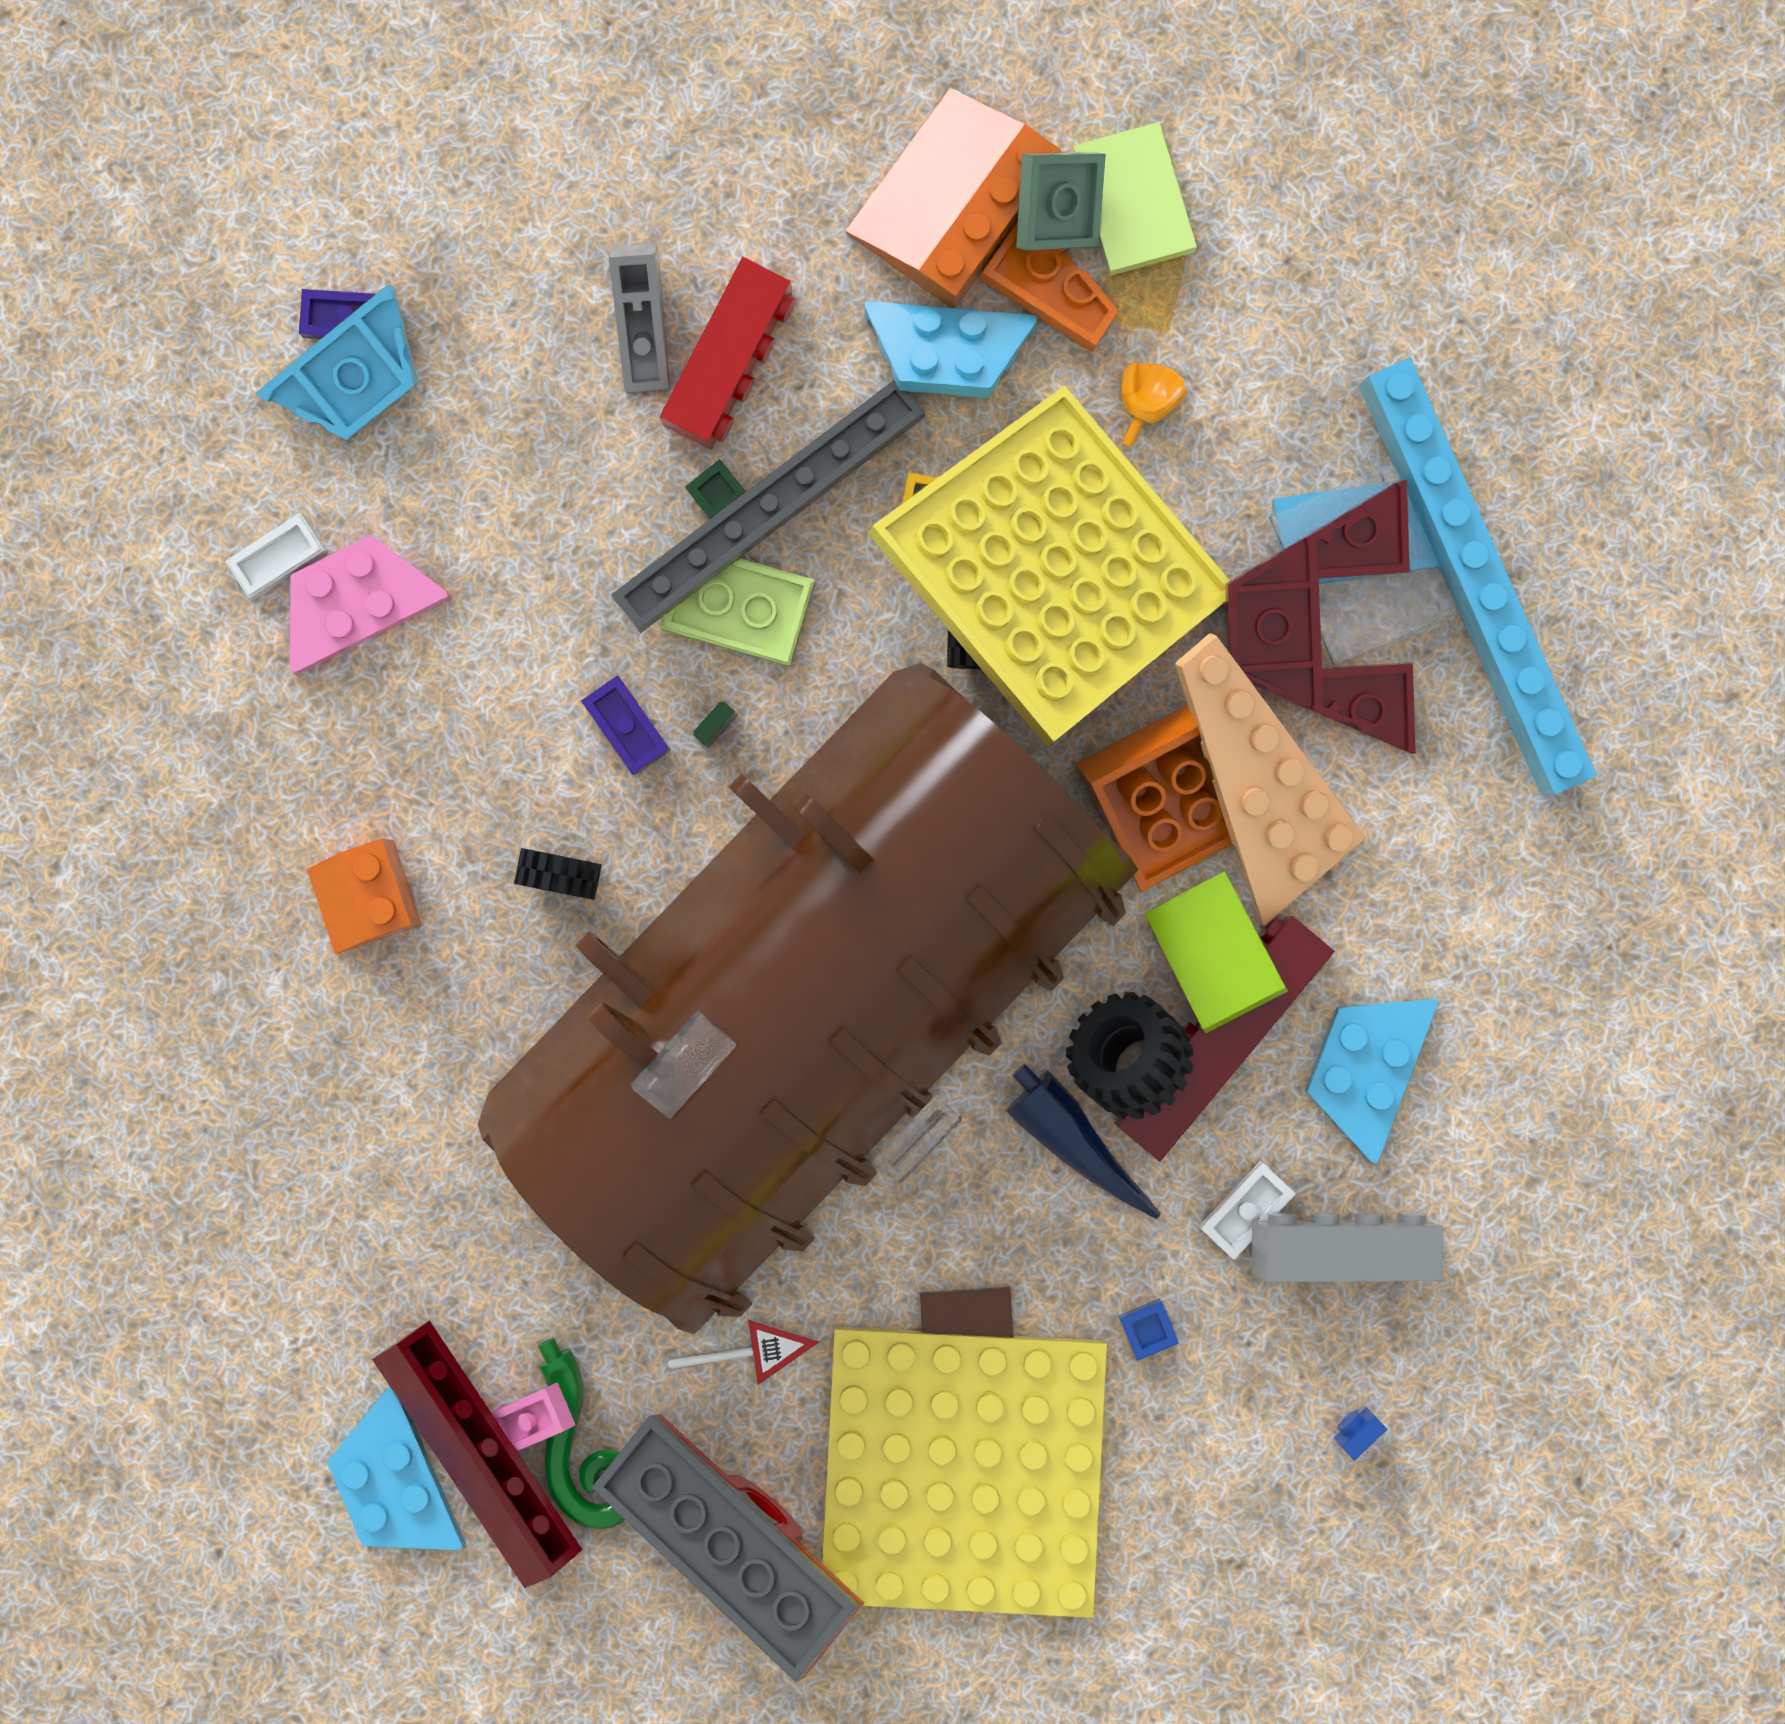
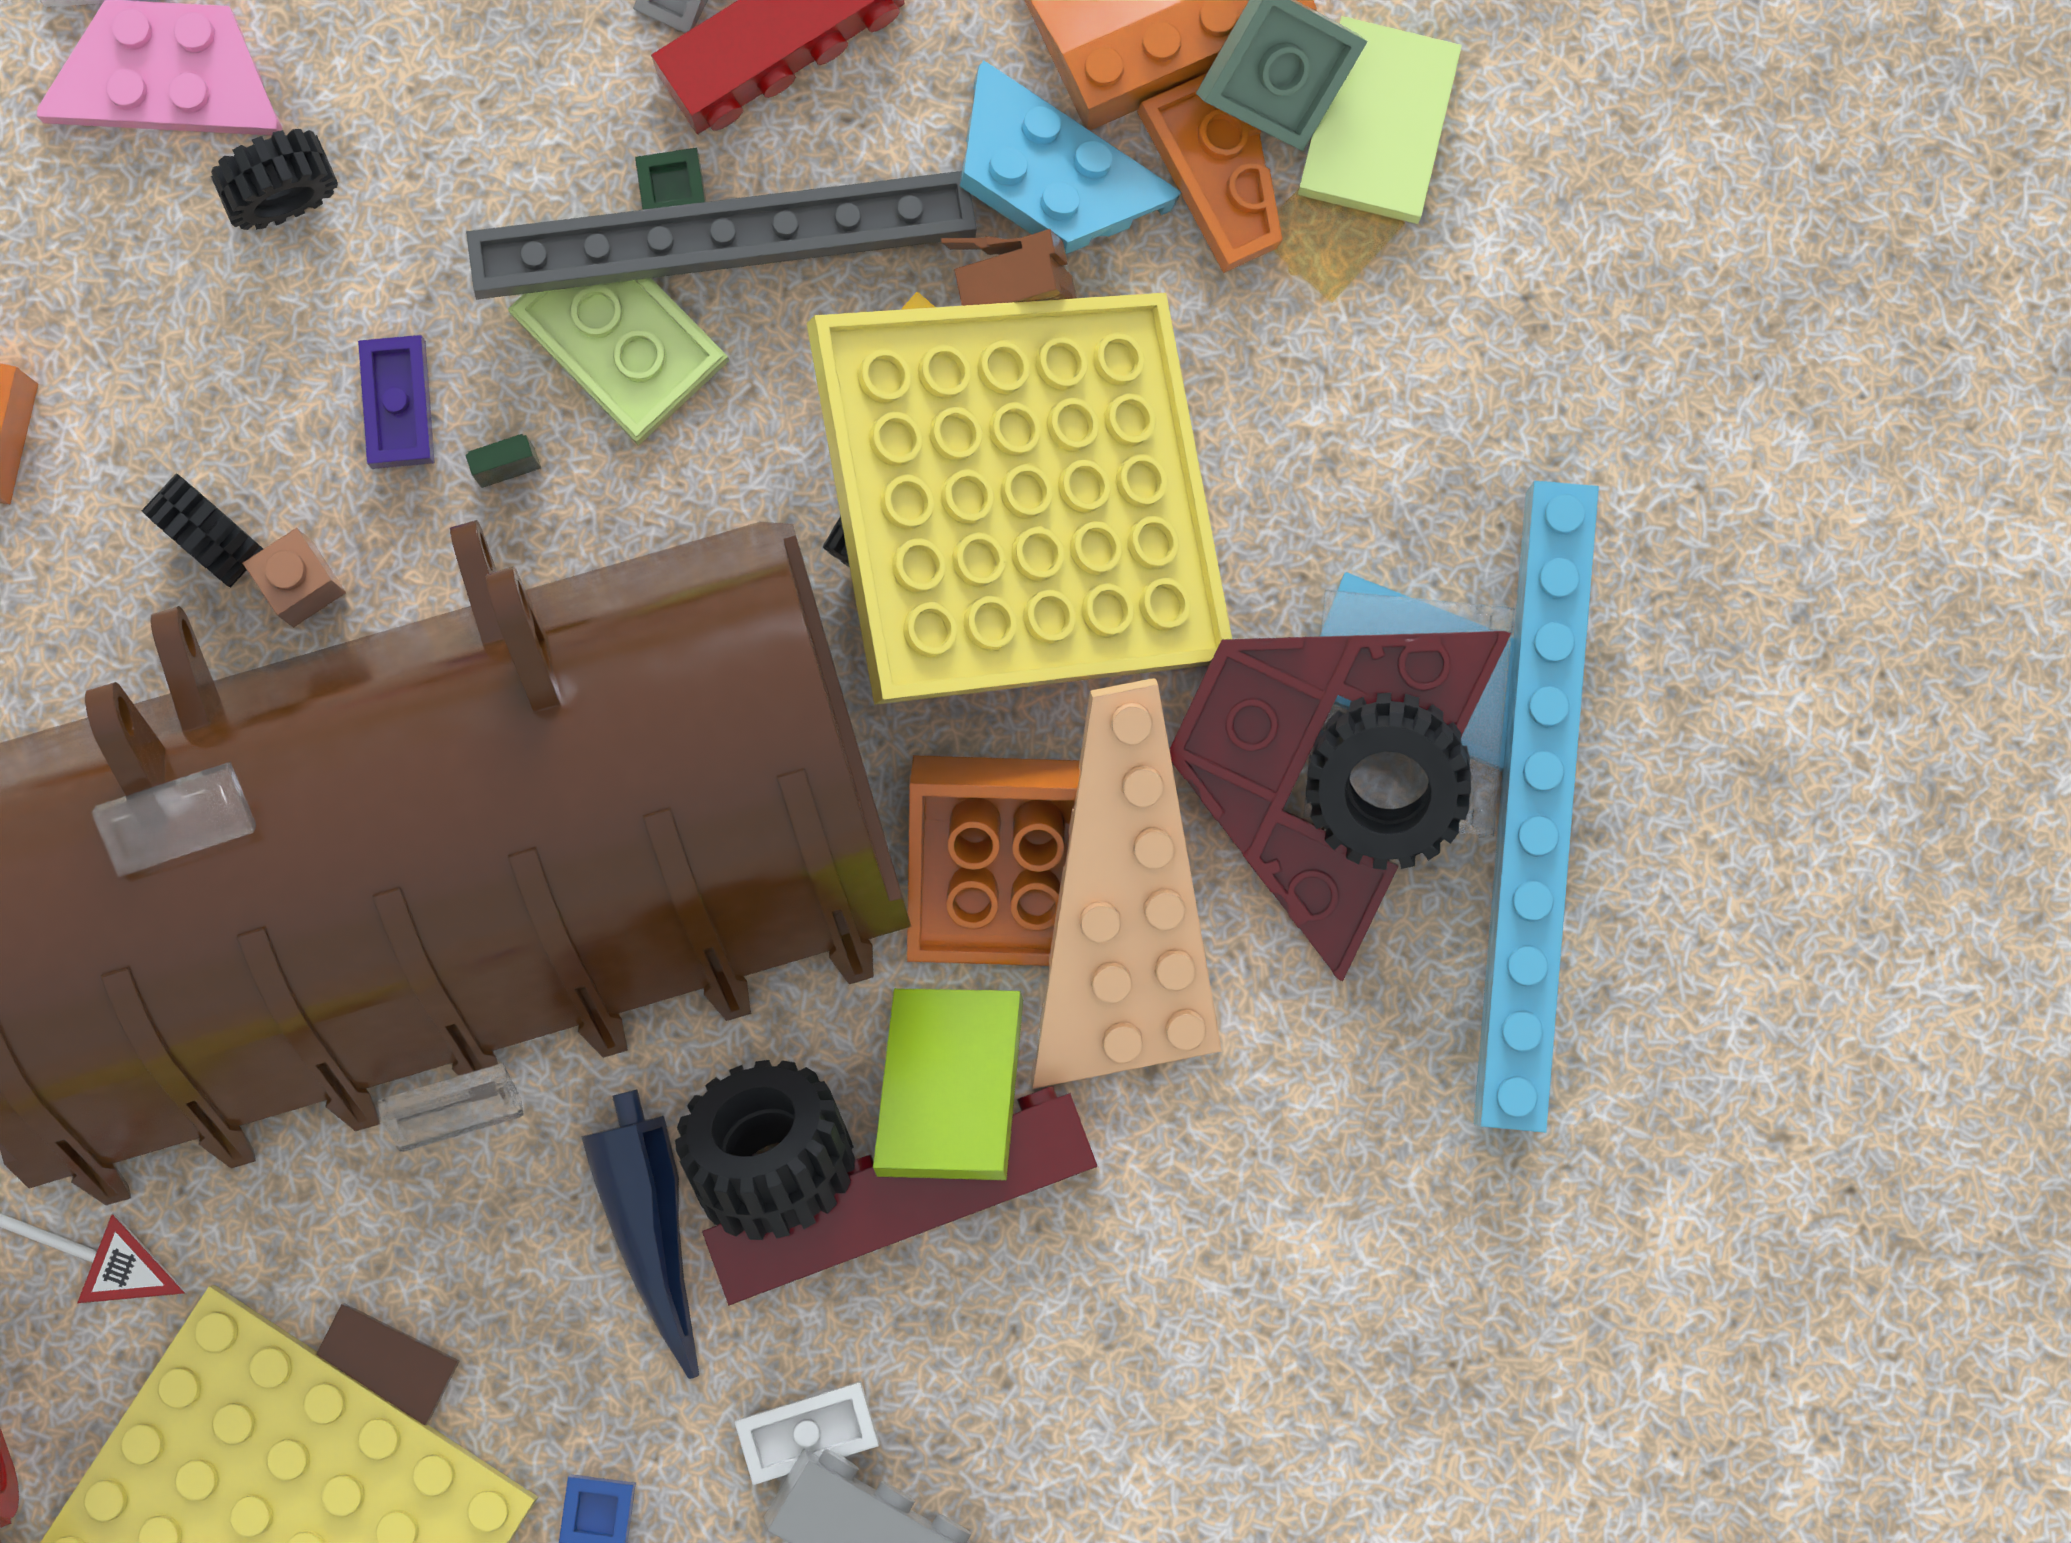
camera: 25 degrees right, 5 degrees down
(469, 629) = (274, 179): none -> black tyre
(629, 870) = (294, 577): none -> nougat brick
(970, 430) = (1023, 271): none -> dark orange piece
(1149, 395) = (1262, 362): light orange piece -> none
(1368, 1067) = (1063, 1341): medium azure wing -> none
(1407, 638) = (1377, 830): none -> black tyre

